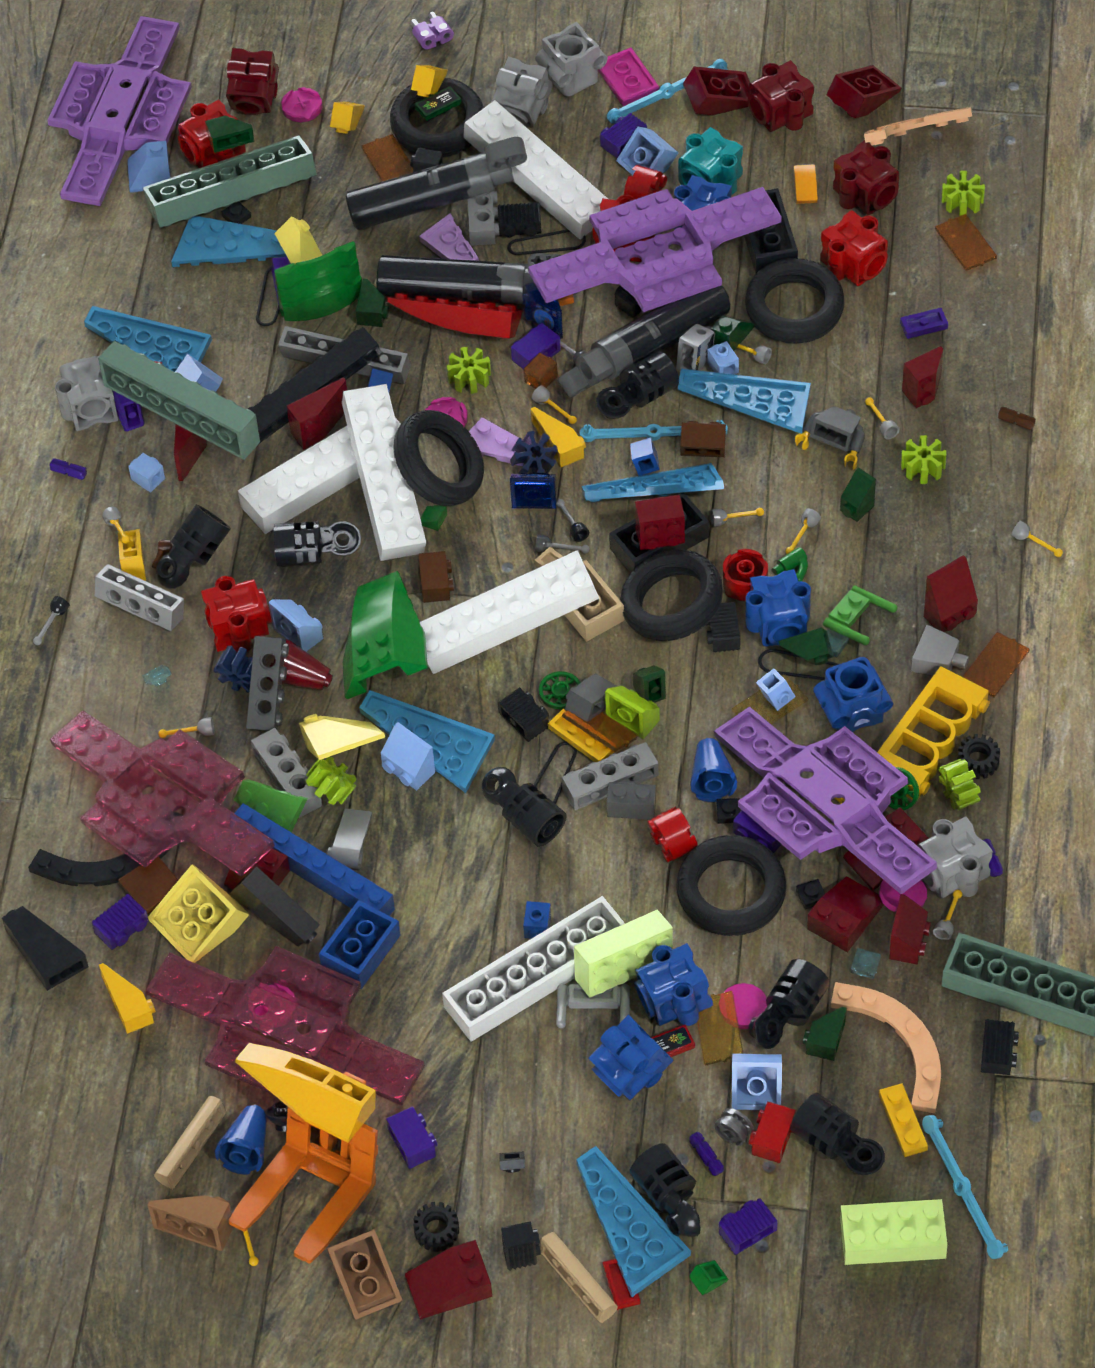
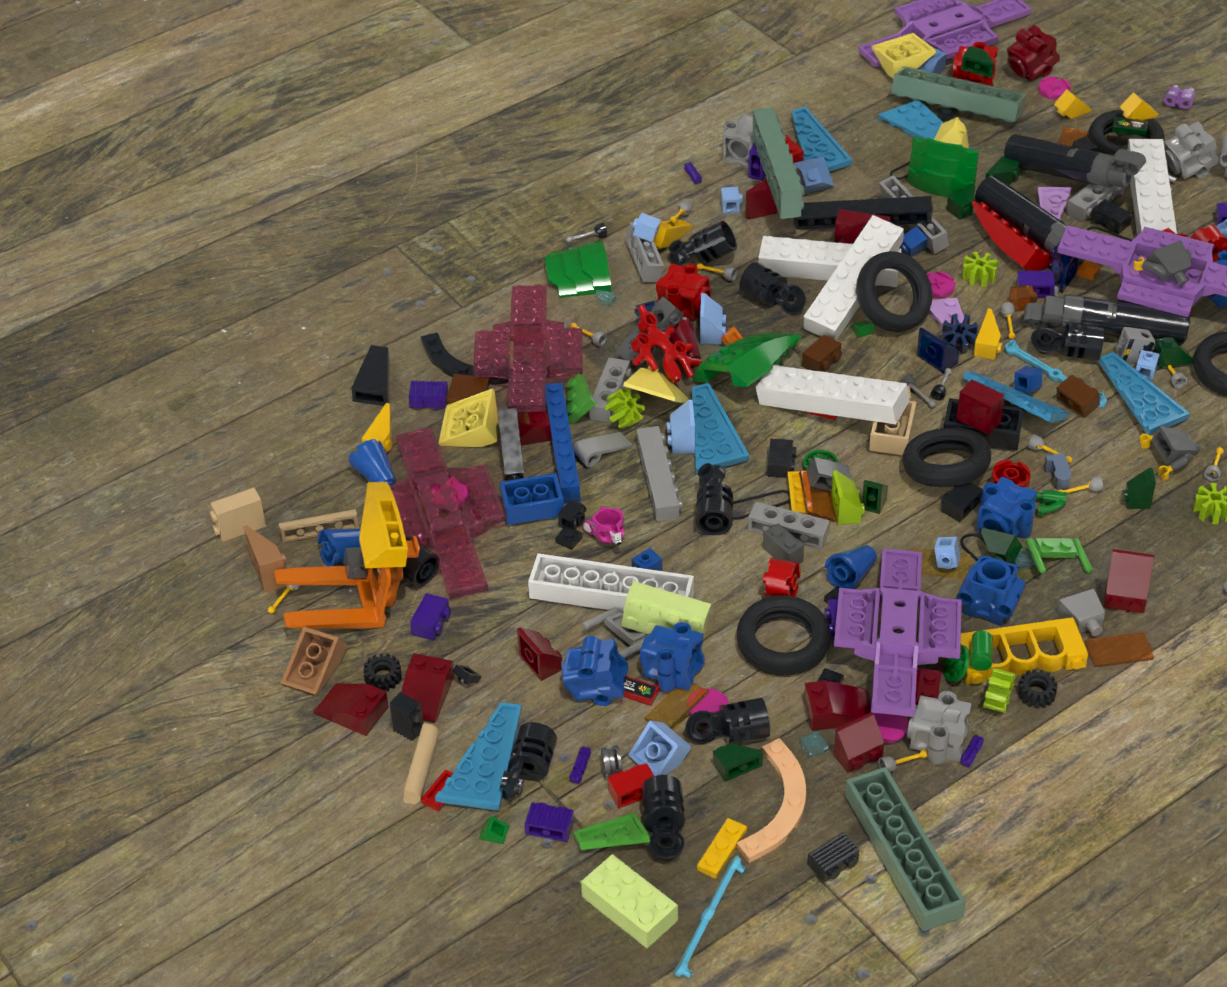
camera: 45 degrees right, 10 degrees down
(93, 665) = (579, 270): none -> green slope
(108, 1199) = (235, 512): none -> tan brick
(122, 172) = (902, 51): none -> light yellow slope
(124, 570) = (646, 227): none -> light blue brick
(172, 1038) = (372, 462): none -> blue cone
(242, 556) = (729, 273): none -> hinge
(287, 1146) = (354, 563): none -> dark grey brick
(312, 685) = (672, 352): none -> red plant
(334, 625) = (731, 336): none -> orange plate
(368, 242) = (1005, 169): none -> dark green slope
(413, 930) = (572, 515): none -> black brick
(431, 953) = (568, 537): none -> black plate
(435, 821) = (658, 474): none -> light grey brick
(460, 912) = (606, 525): none -> dark pink piece
(490, 1203) = (428, 682): none -> dark red slope
(553, 1087) = (538, 653): none -> dark red slope
(667, 244) = (1167, 263): none -> dark grey torso
(768, 529) = (1060, 470): none -> sand blue leg
(810, 1186) = (614, 832): none -> bright green wing
(913, 760) = (981, 650): none -> green piece

